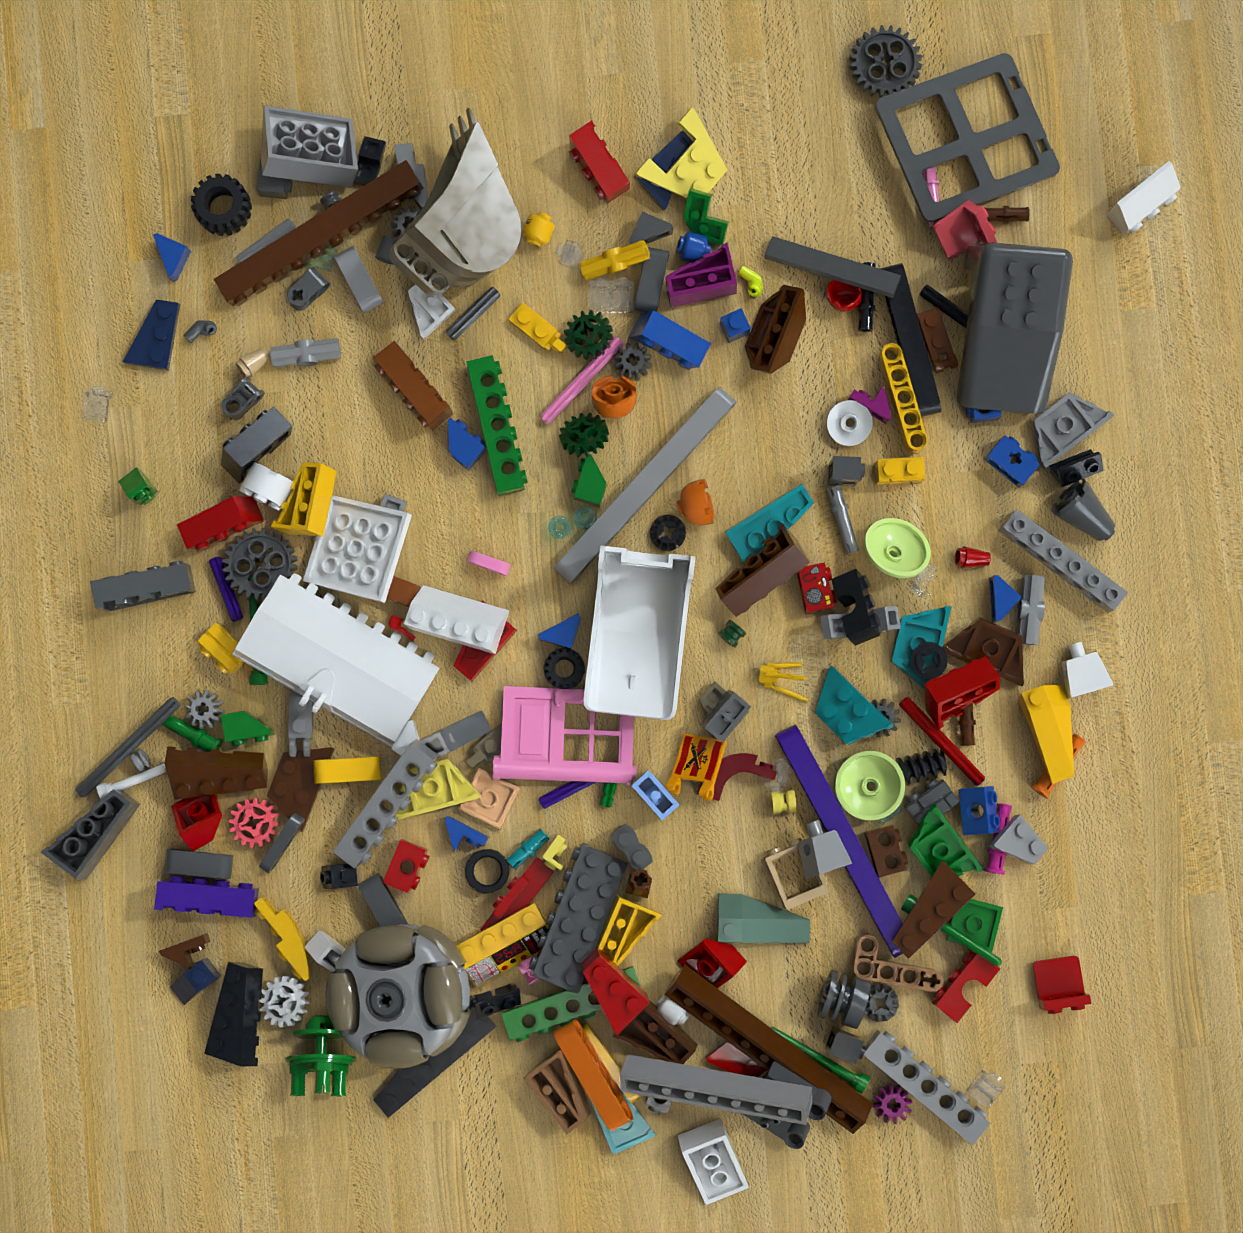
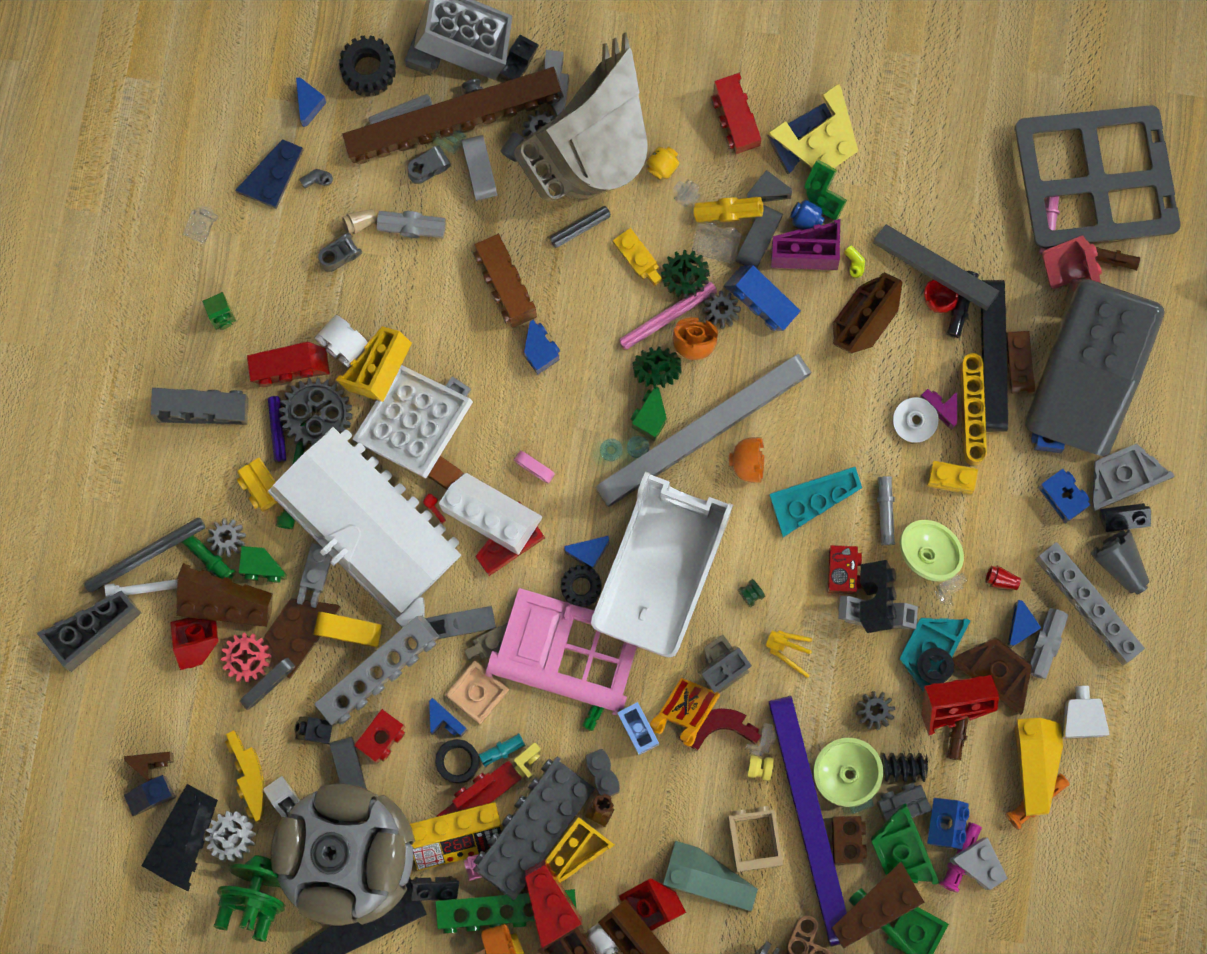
camera: 15 degrees right, 5 degrees down
(140, 759) = (153, 570): light grey bush -> none
(198, 863) = (182, 683): dark grey beam -> none
(206, 897) = (181, 717): dark purple wedge -> none
(254, 442) = (340, 297): black wedge -> none
(429, 311) = (539, 214): white wing -> none
(440, 789) = (432, 671): light yellow wing -> none
(478, 370) = (572, 281): green brick -> none
(562, 793) = (550, 704): dark purple axle -> none
(665, 543) = (709, 490): black gear -> none
(735, 325) = (828, 299): blue brick -> none
(763, 572) = (795, 541): reddish brown wedge -> none
(822, 851) = (785, 823): light grey torso -> none
(845, 471) = (900, 464): dark grey brick -> none
(848, 710) = (845, 694): teal wing -> none
(865, 63) = (1016, 83): dark grey gear -> none
(942, 741) = (929, 748): red axle -> none
(944, 305) = (1035, 329): black axle -> none

